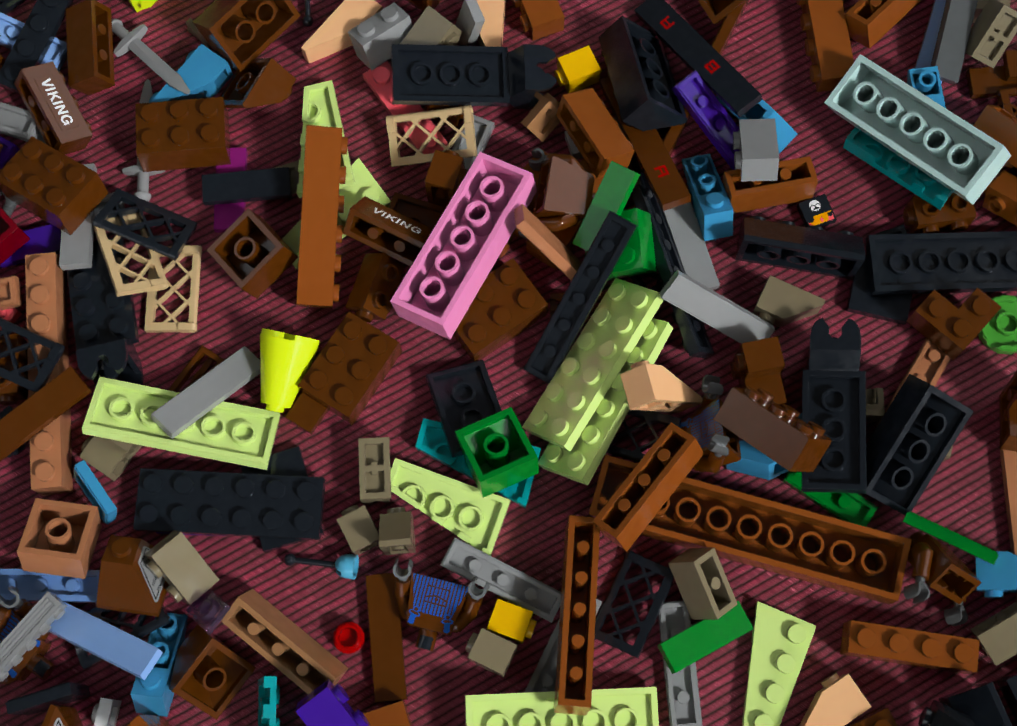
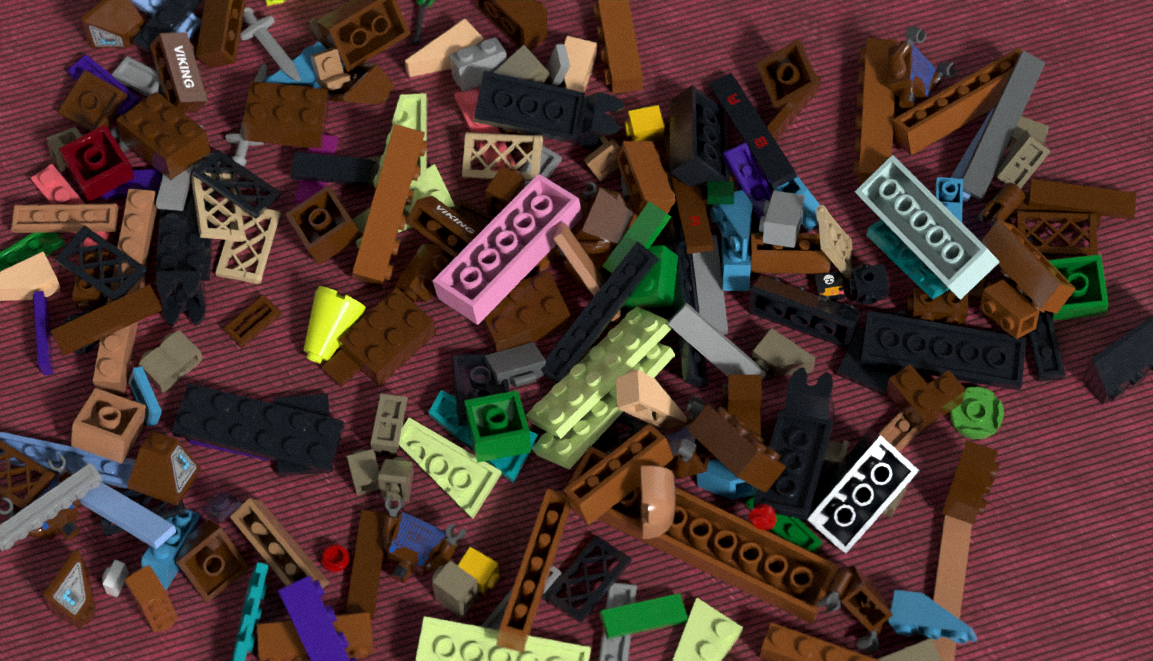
camera: 10 degrees right, 10 degrees down
(41, 700) = (57, 551): black tile -> none
(181, 568) = (205, 469): dark tan brick -> none
(207, 392) = (259, 331): light grey tile -> none
(219, 73) = (329, 69): none -> medium nougat bracket
(224, 434) = (232, 352): yellowish green plate -> none
(345, 566) = (346, 498): hinge -> none
(499, 371) = (517, 364): none -> dark grey piece
(503, 579) = (478, 534): light grey tile -> none
(681, 132) = (720, 192): none -> dark green tile
(699, 510) = (657, 500): none -> nougat brick
(702, 158) = (735, 222): none -> dark azure slope
(703, 583) = (650, 568): dark tan brick -> none
(815, 500) = (762, 517): none -> red plate
(818, 163) = (834, 241): none -> tan window
(860, 203) = (868, 284): none -> black brick
(951, 537) = (874, 572): green tile -> none
(983, 85) = (1002, 204): none -> reddish brown hinge

